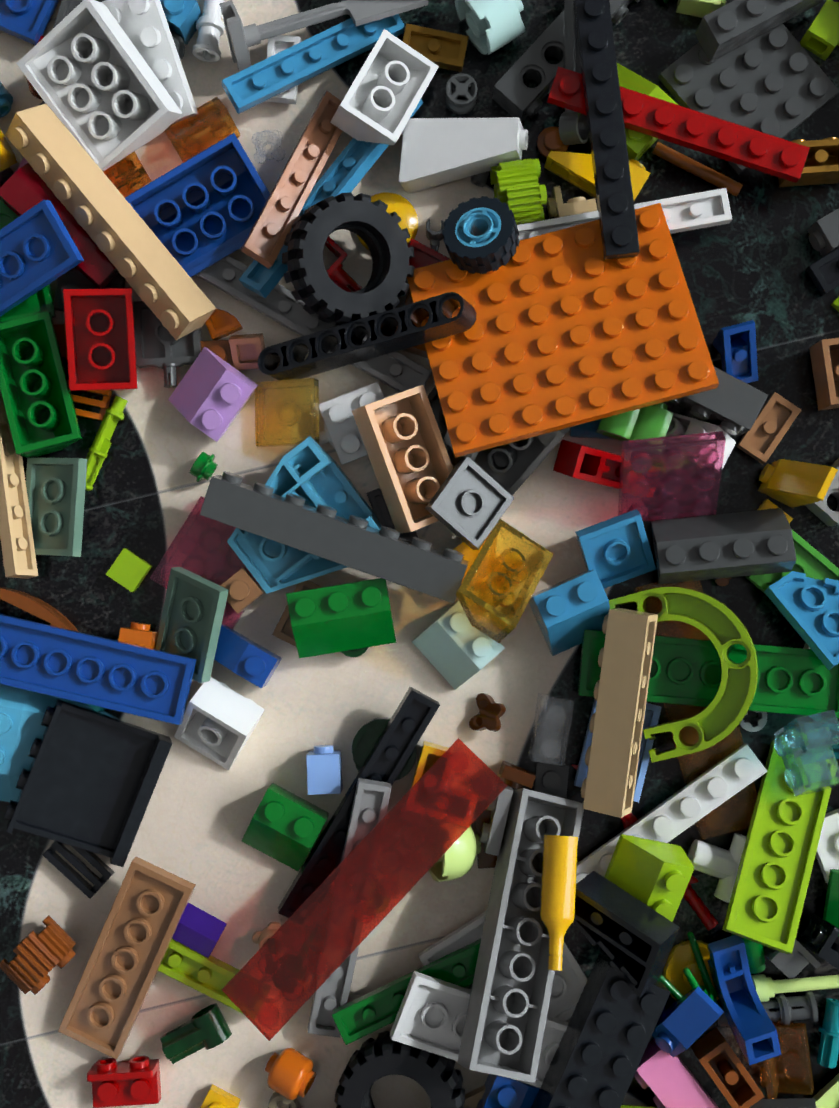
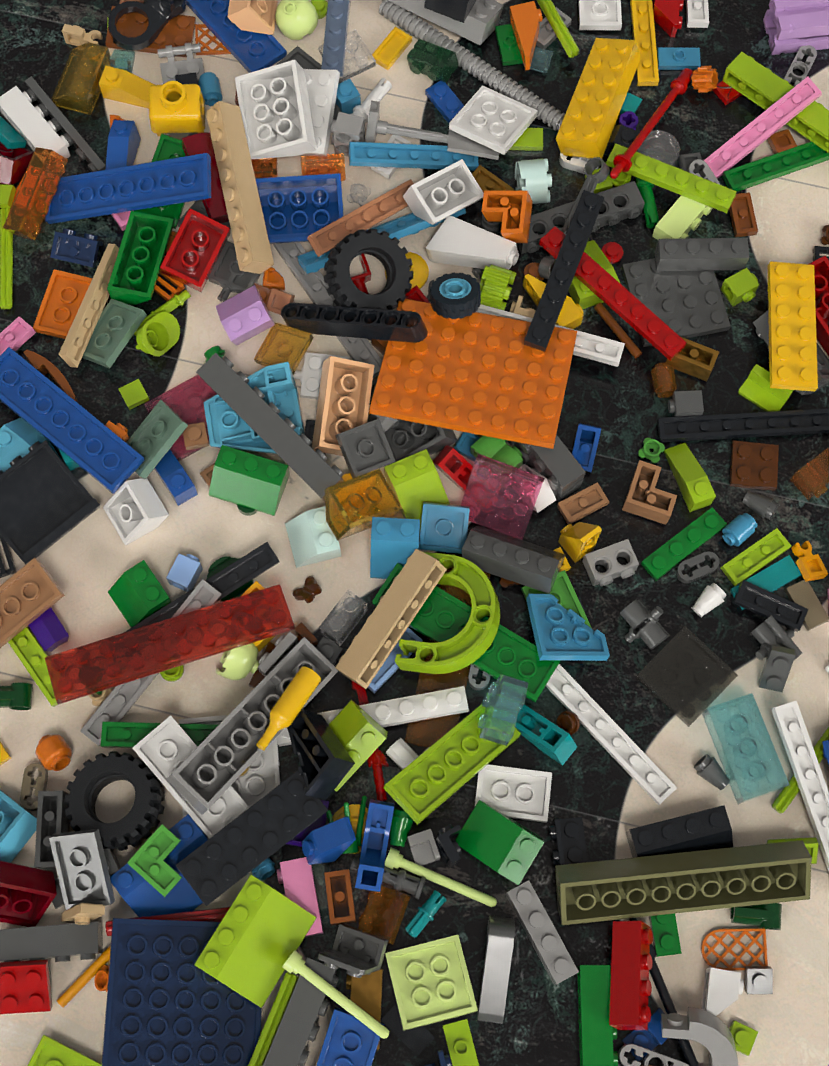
camera: 25 degrees right, 15 degrees down
(116, 477) = (158, 334): none -> lime piece
(207, 65) = (345, 130): none -> light grey brick
(490, 70) = (511, 209): none -> orange brick
(551, 512) = (415, 482): none -> lime slope
(639, 61) = (613, 252): none -> red plate
(791, 209) = (664, 380): none -> clear orange brick
(826, 309) = (651, 444): none -> bright green plate

